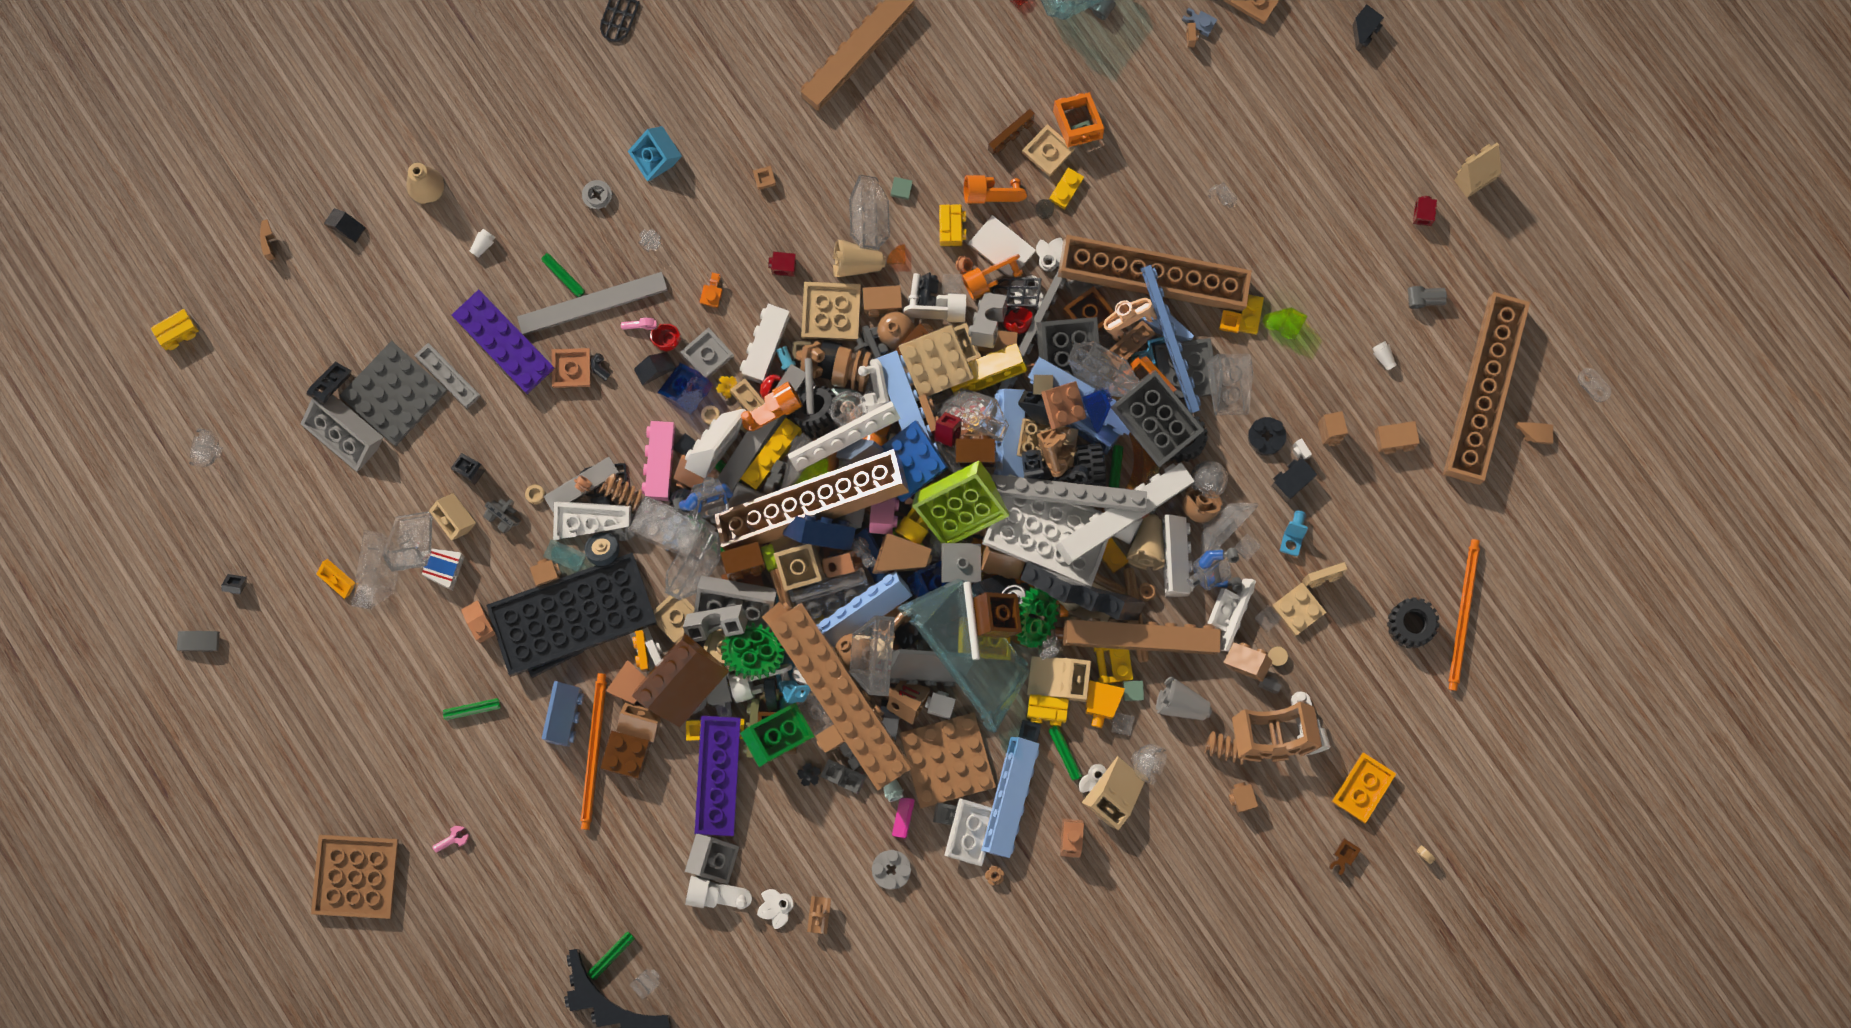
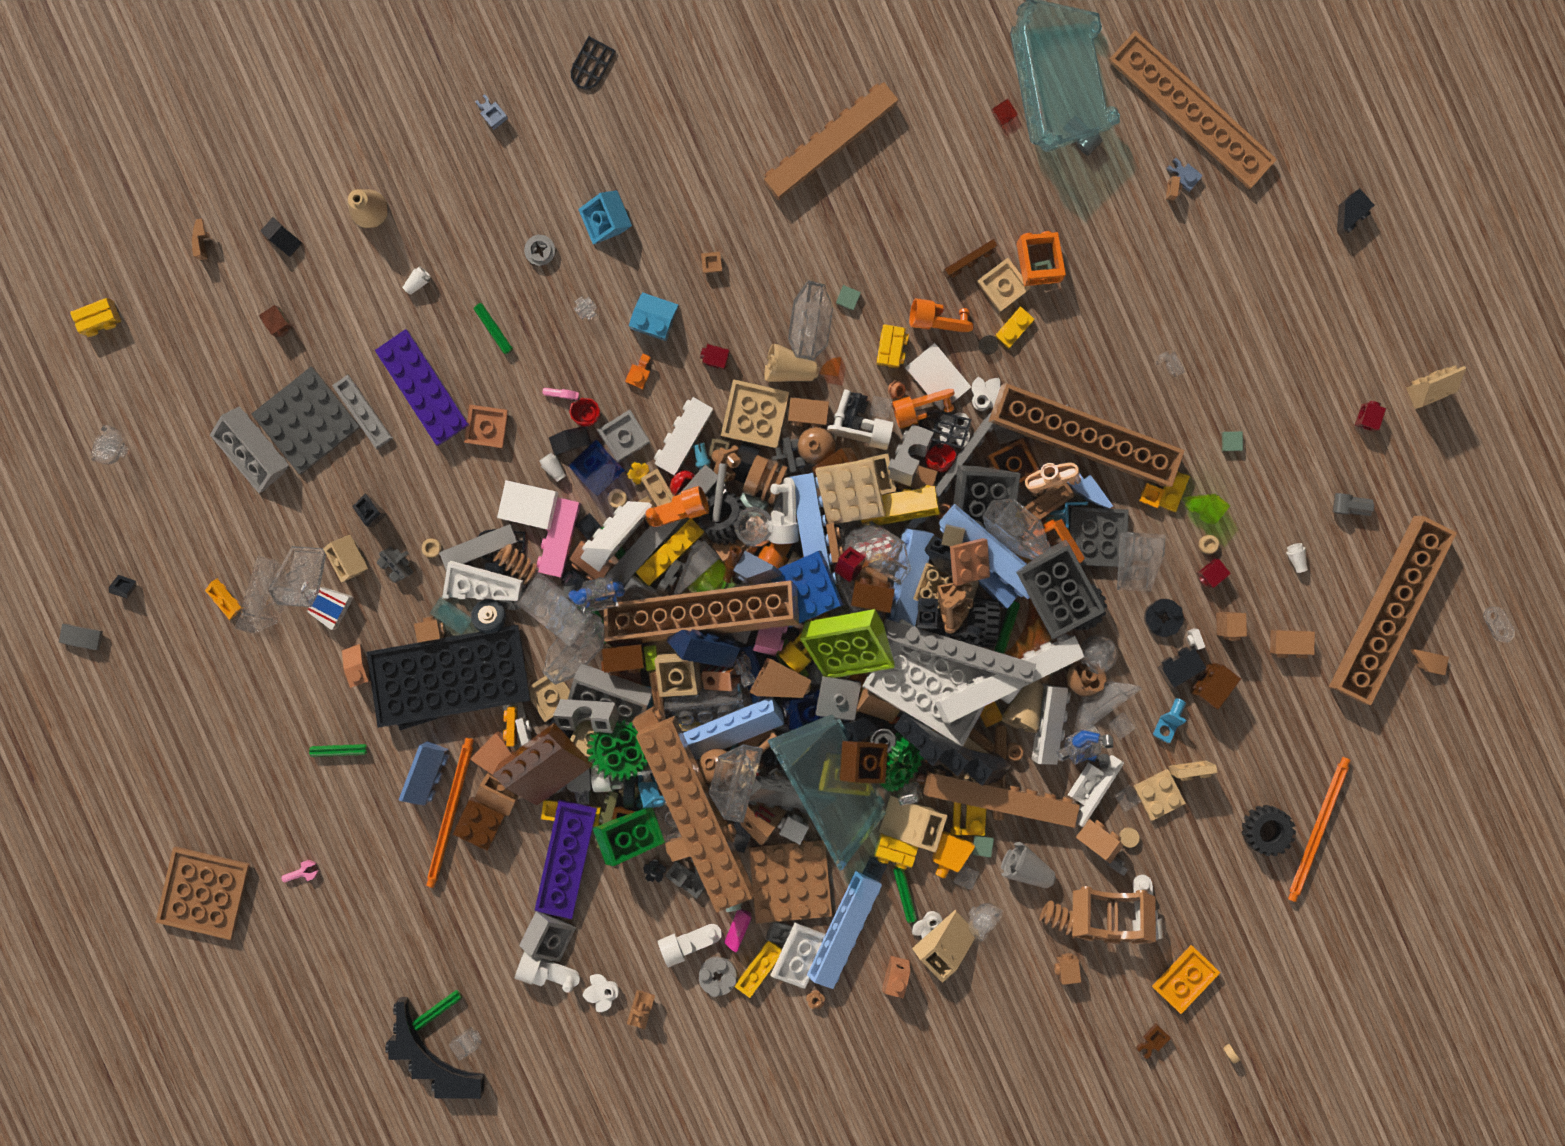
camera: 10 degrees right, 10 degrees up
(329, 382) = (241, 400): black plate -> none
(351, 304) = (276, 321): none -> copper brick
(531, 77) = (492, 113): none -> sand blue plate
(582, 483) = (479, 548): nougat plate -> none
(592, 303) = (517, 363): light grey tile -> none
(597, 366) = (512, 430): black arm -> none
(623, 434) = (527, 505): none -> white tile
(642, 395) = (552, 466): none -> white cone
(716, 238) = (653, 316): none -> dark azure slope
(844, 436) = (744, 554): white plate -> none
(845, 845) = (675, 949): none -> white piece
(931, 853) = (758, 968): none -> yellow plate
(971, 621) = (837, 764): white bar -> none
(1097, 406) = (1004, 570): clear blue slope -> none
(1174, 347) = (1090, 515): medium blue plate -> none
(1296, 359) = (1208, 544): none -> tan tile
(1297, 258) = (1232, 441): none -> sand green tile
(1305, 384) = (1213, 573): none -> dark red brick
(1329, 490) = (1215, 685): none -> reddish brown brick

